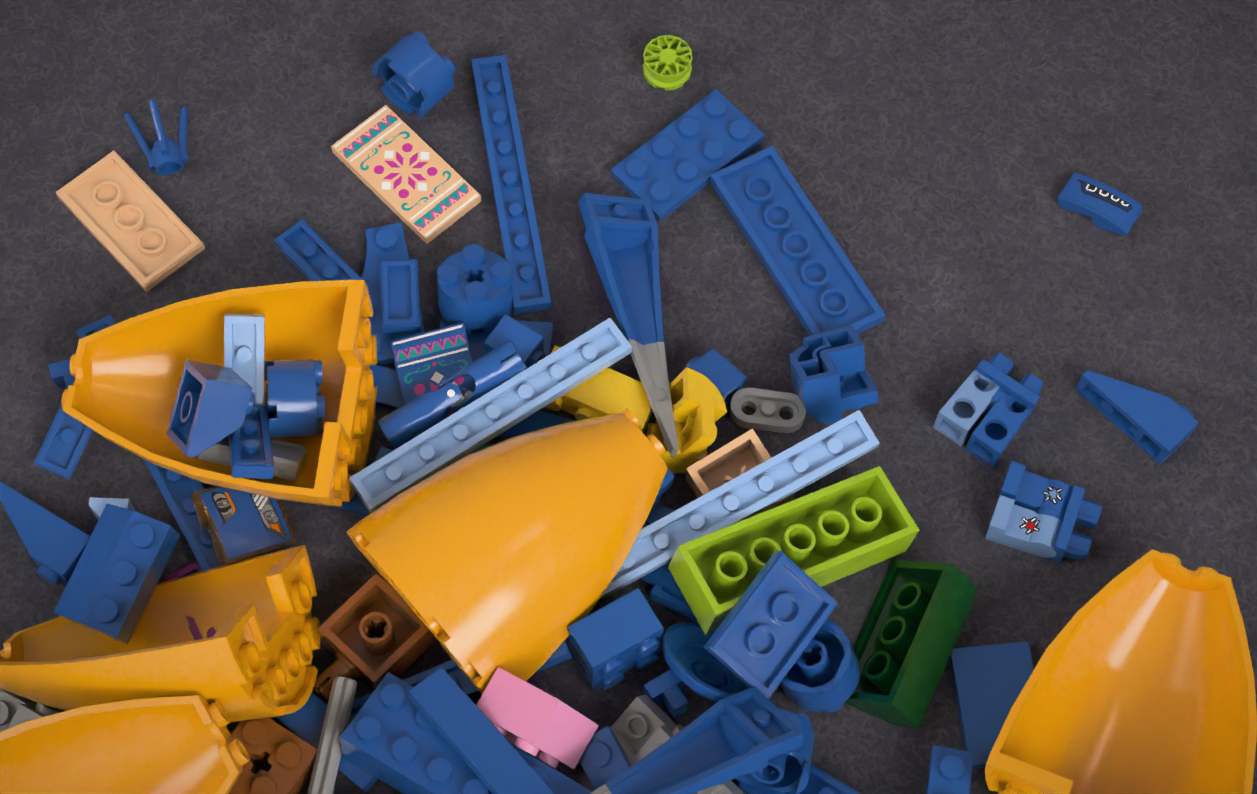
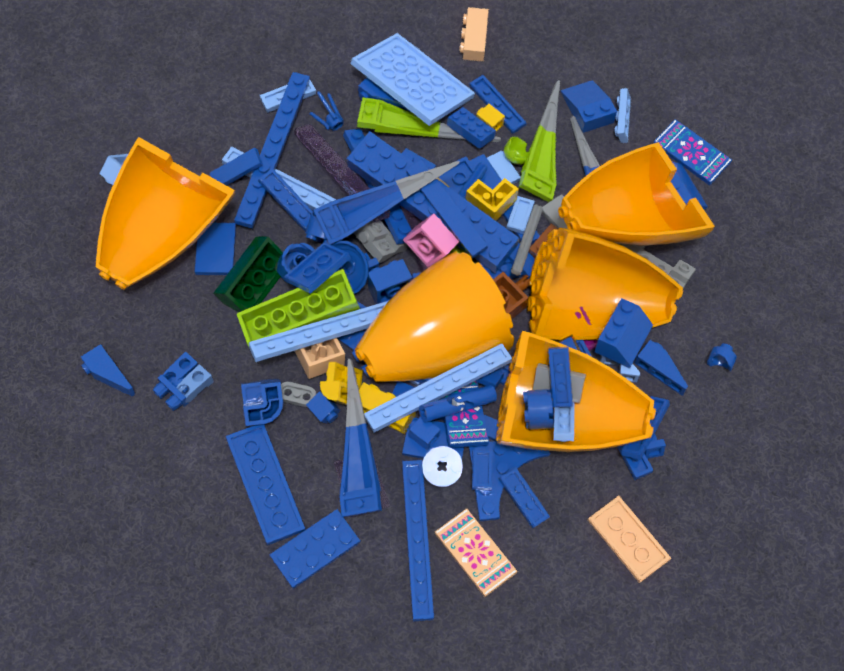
camera: 175 degrees left, 0 degrees up
(165, 155) = (612, 576): blue plant -> none
(208, 406) = (581, 391): blue slope -> none
(414, 74) = (467, 602): blue brick -> none
(666, 63) = (318, 607): lime wheel -> none
(1040, 516) = (172, 326): hips -> none
(1105, 204) = (90, 492): blue slope -> none

